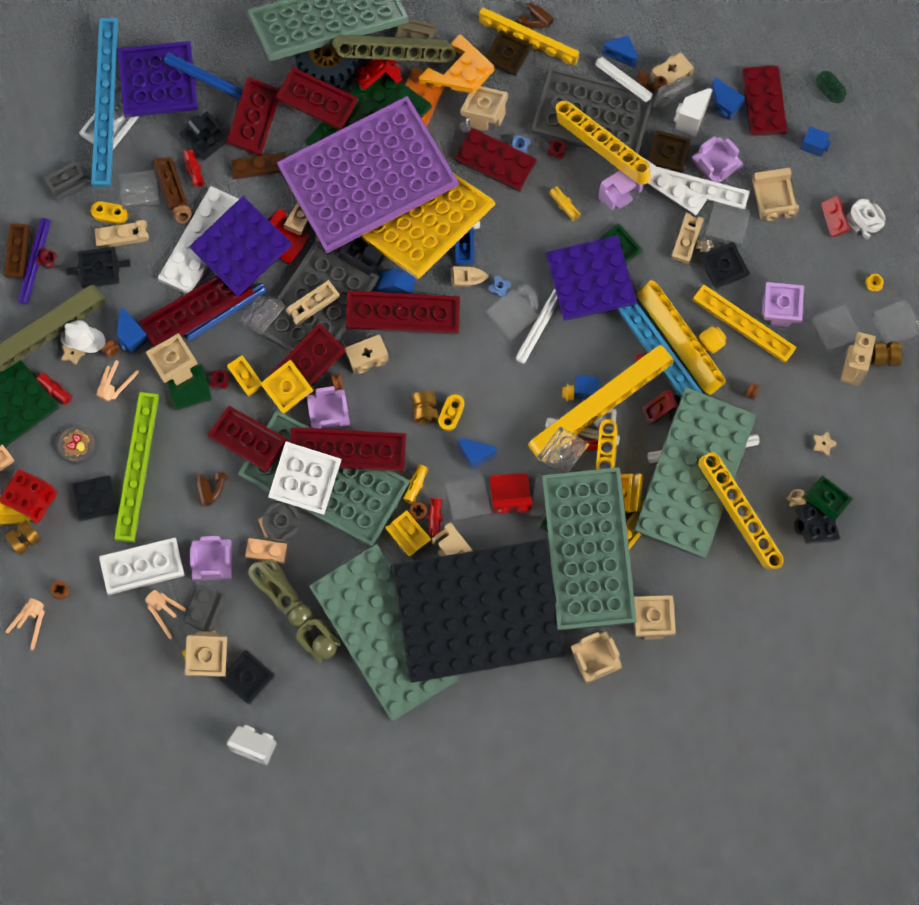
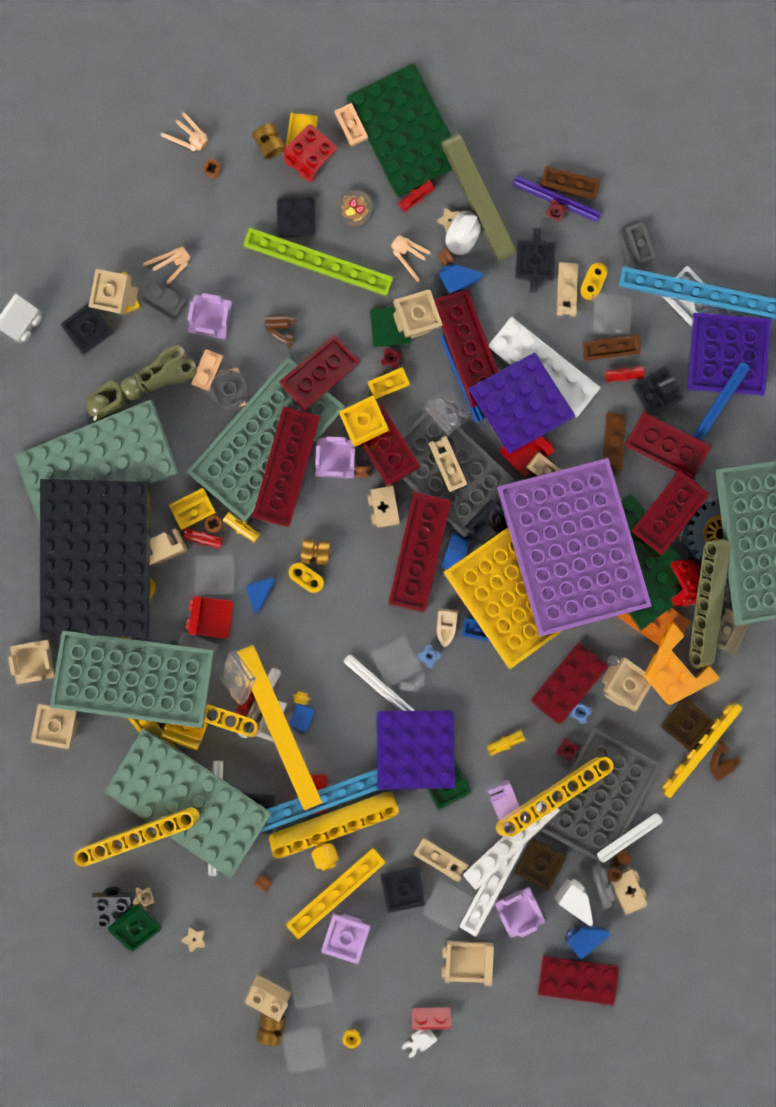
camera: 100 degrees right, 15 degrees up
(141, 566) = (217, 249): white plate -> none
(182, 213) = (575, 353): medium nougat plate -> none
(304, 478) = (263, 419): white plate -> none
(621, 50) = (665, 844): blue slope -> none
(659, 407) = (263, 784): dark red plate -> none
(704, 245) = (428, 875): dark tan plate -> none
(815, 141) = (518, 1021): blue brick -> none
(832, 87) = (578, 1056): clear green plate -> none
(859, 213) = (419, 1045): white tile -> none

